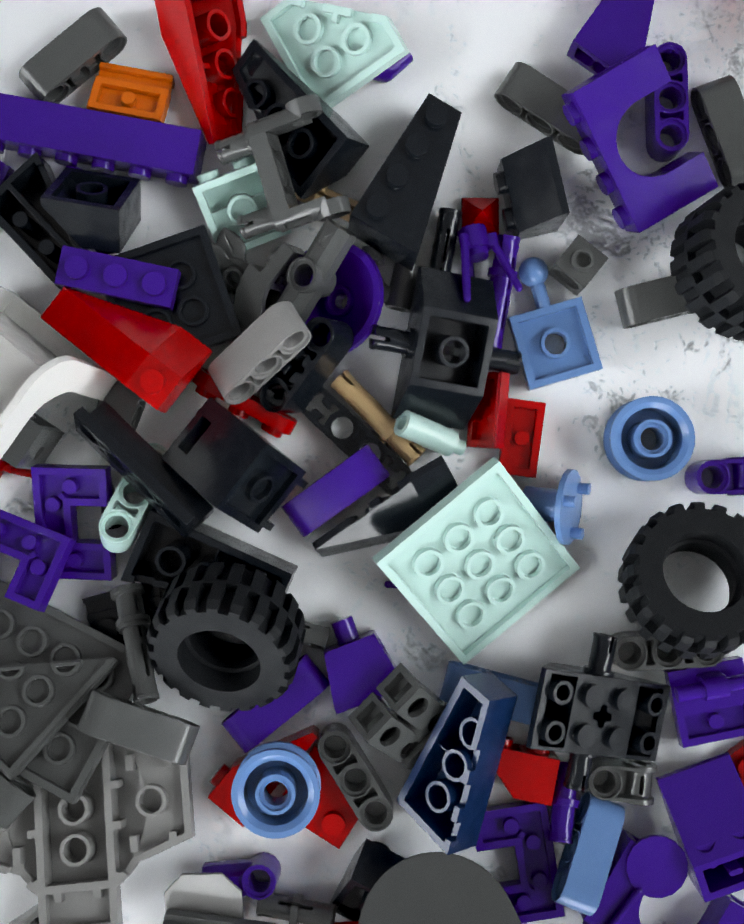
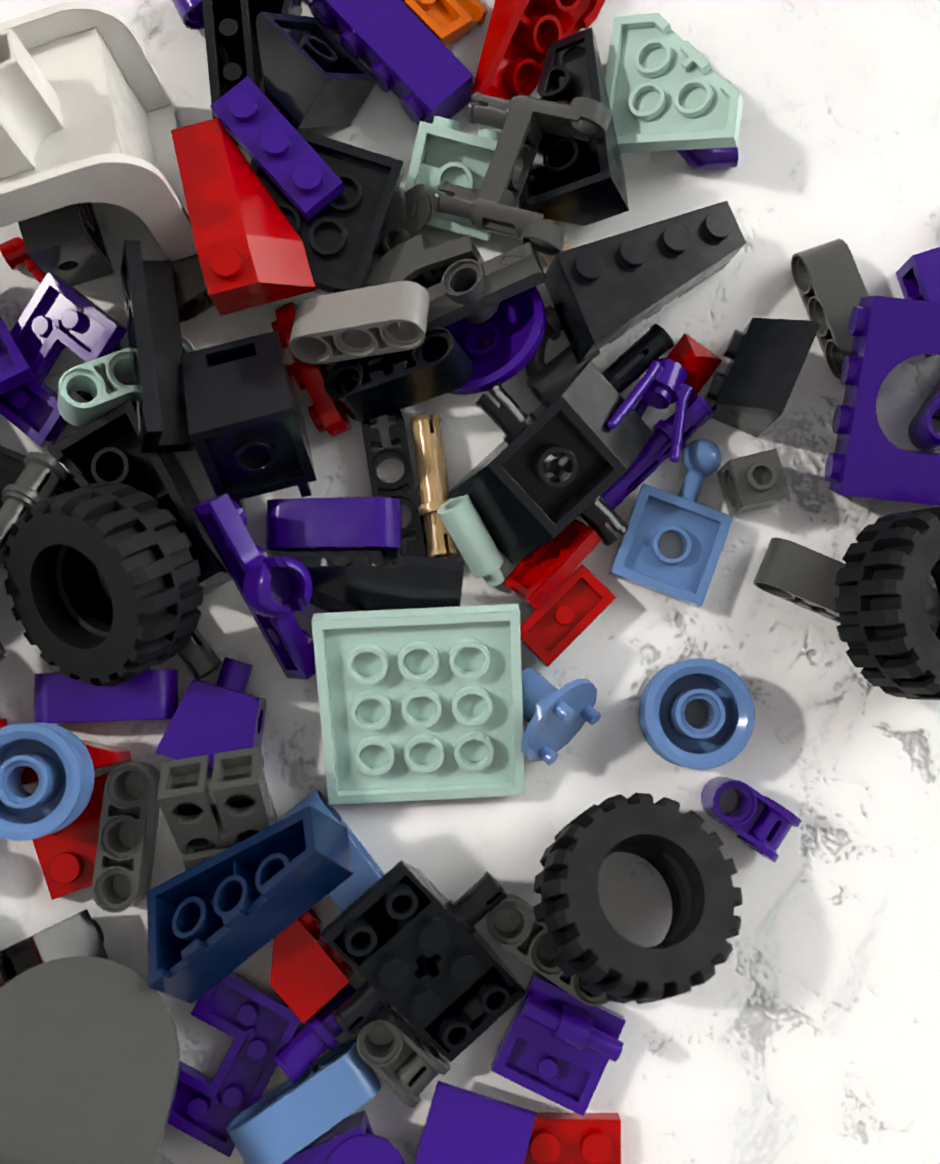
camera: 30 degrees right, 5 degrees down
(329, 562) = (268, 585): none -> dark purple plate

